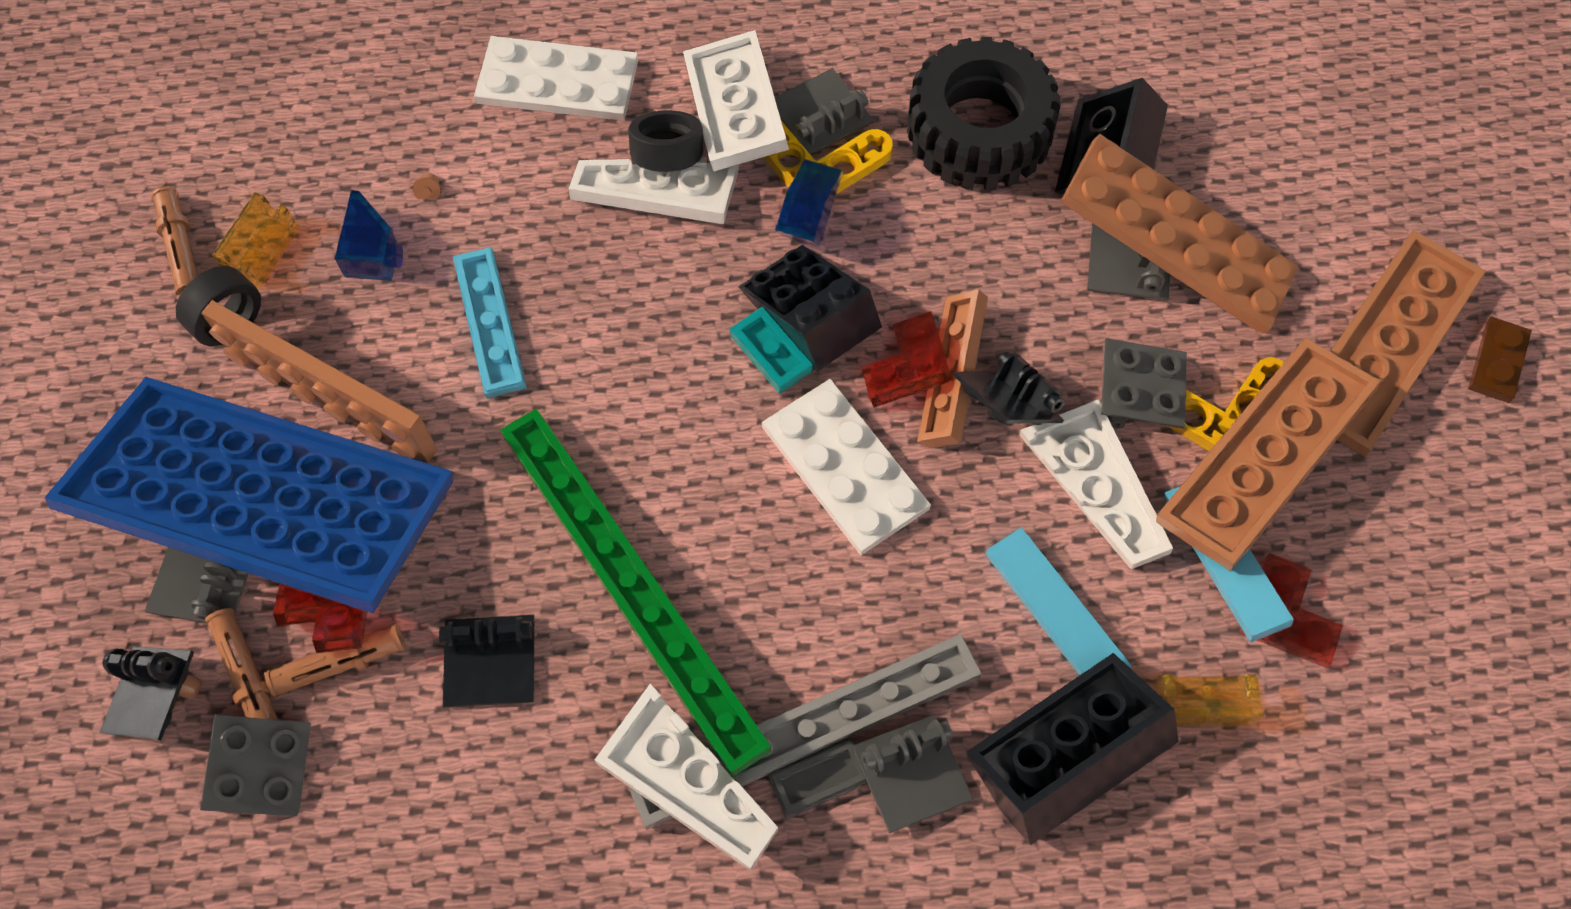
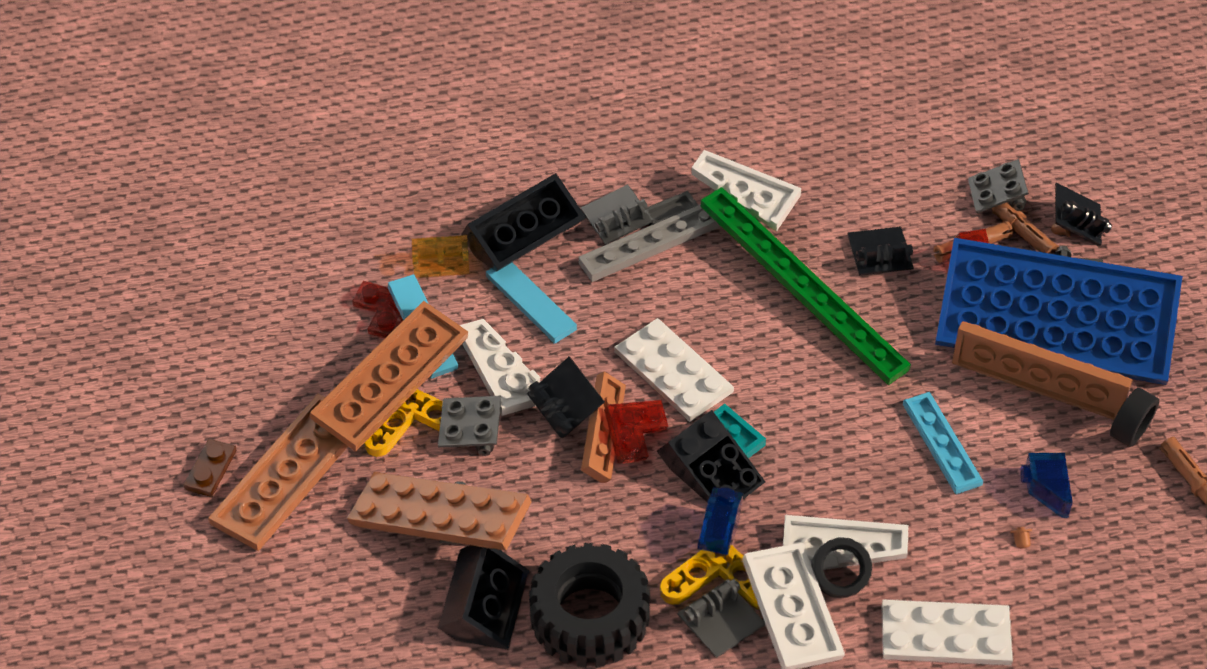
camera: 175 degrees right, 15 degrees down
(257, 239) = (1131, 476): clear yellow hinge -> none

